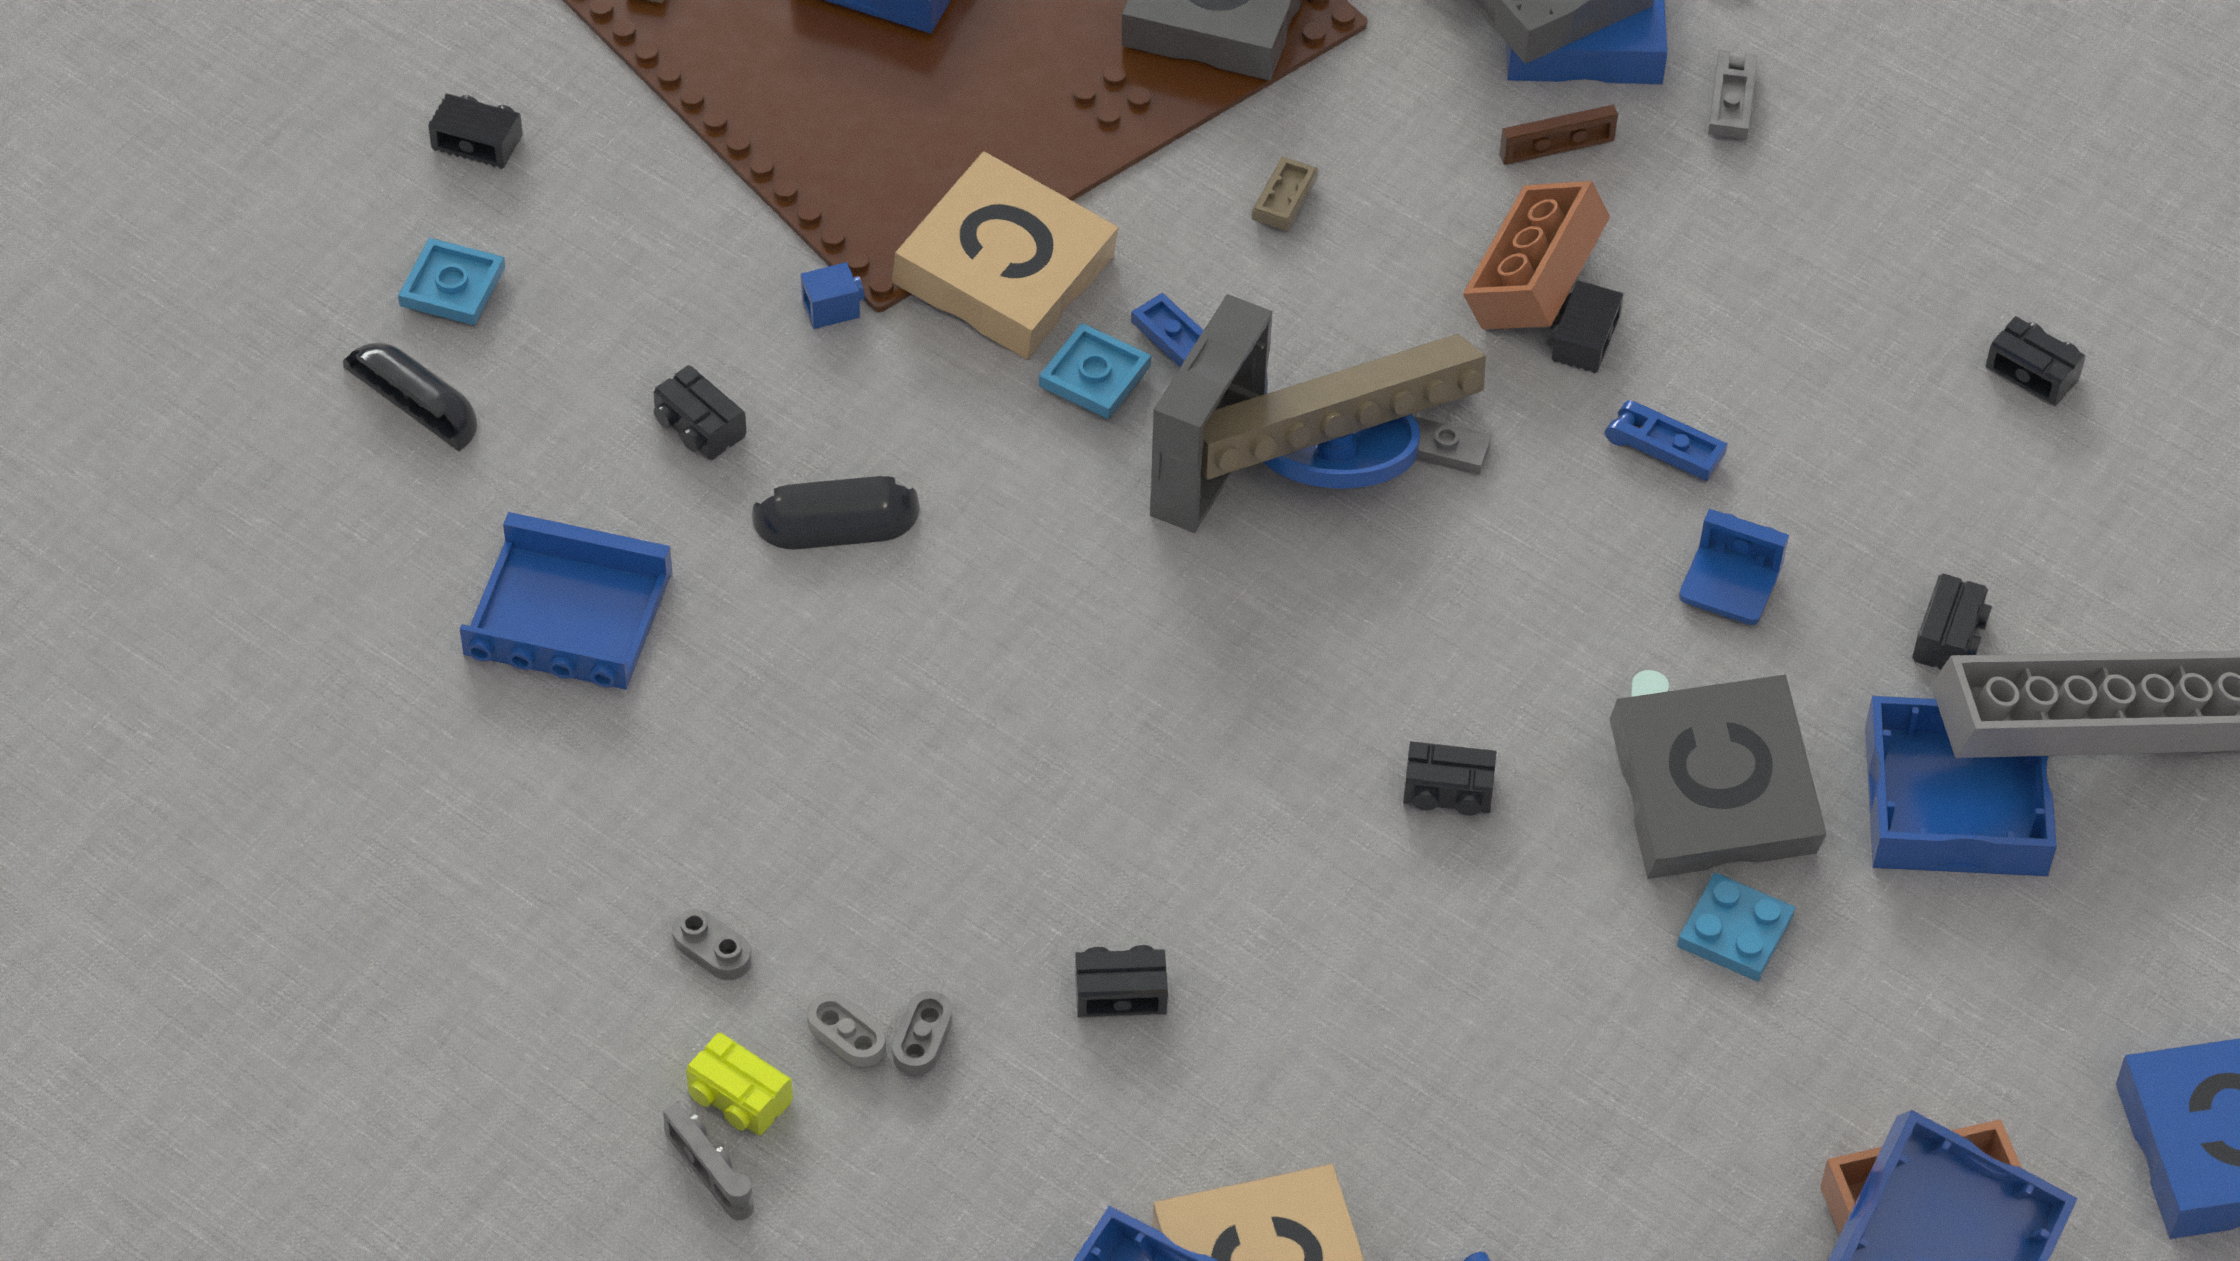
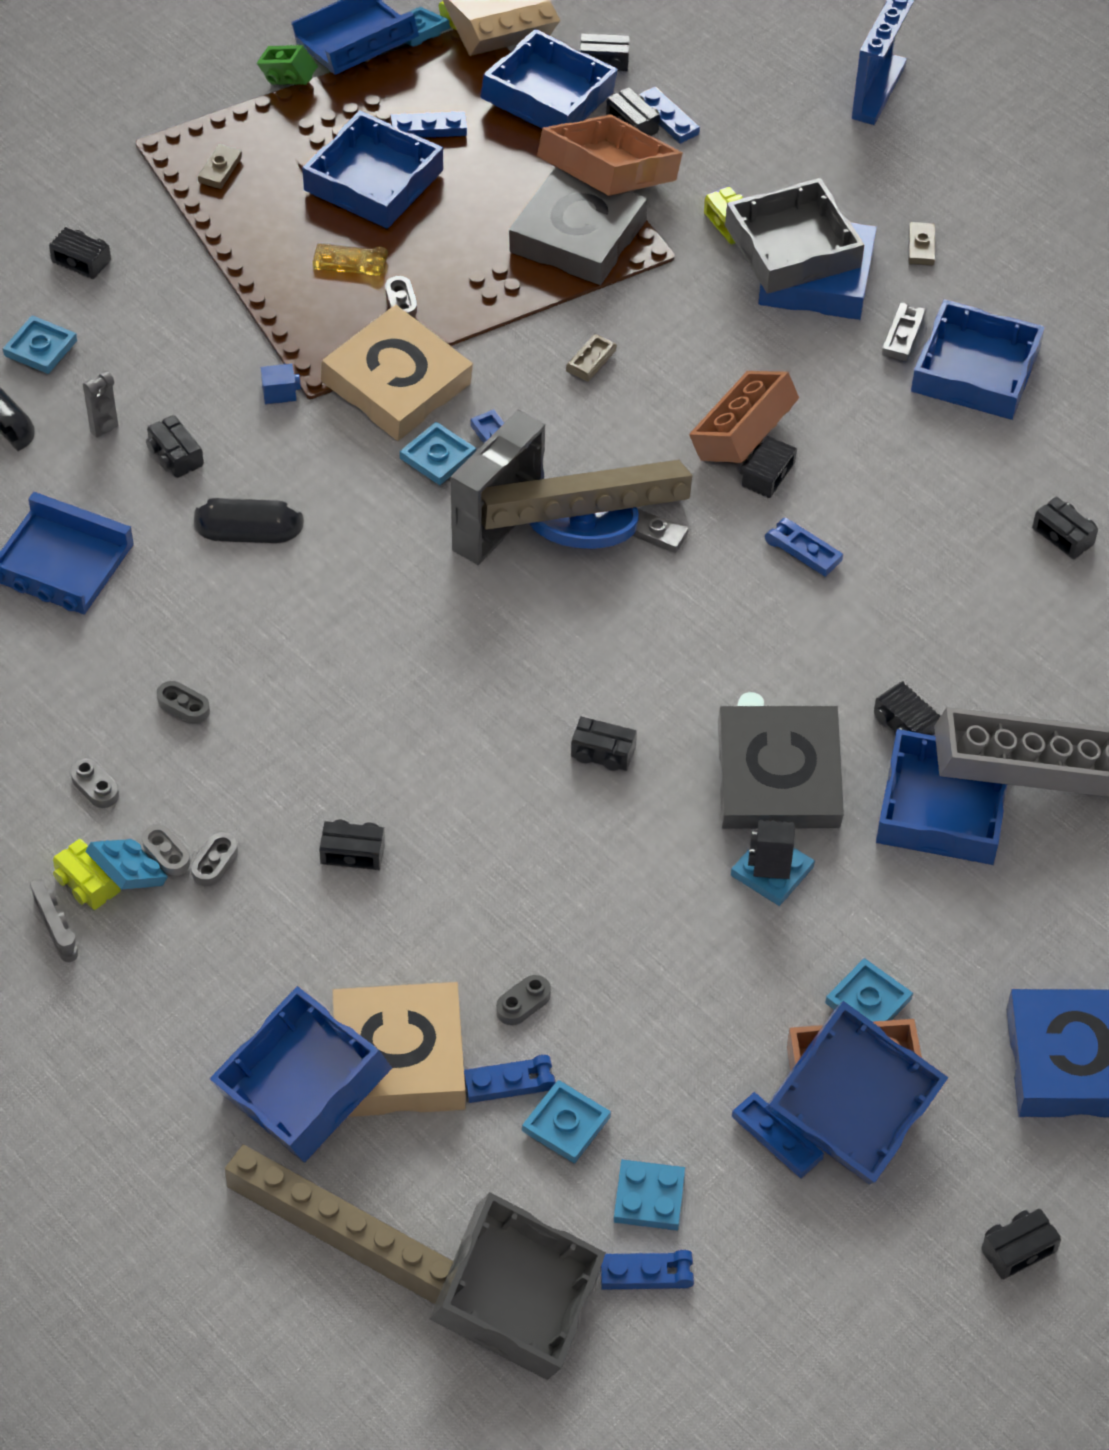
camera: 10 degrees right, 0 degrees up
(577, 363) = (100, 404): none -> flat silver plate
(797, 1059) = (126, 863): none -> dark azure plate
(815, 802) = (185, 702): none -> dark grey plate
(888, 88) = (350, 259): none -> clear yellow plate
(986, 136) = (400, 292): none -> plate
(1428, 1172) = (525, 998): none -> dark grey plate
(1558, 134) = (780, 342): reddish brown tile -> none
(1734, 567) = (828, 634): blue bracket -> none
(1741, 901) = (772, 849): none -> black brick
(1851, 123) = (977, 359): none -> blue tile
(1874, 667) = (905, 710): none -> black brick
(1921, 1084) = (870, 993): none -> dark azure plate
(1951, 621) = (967, 686): black brick -> none

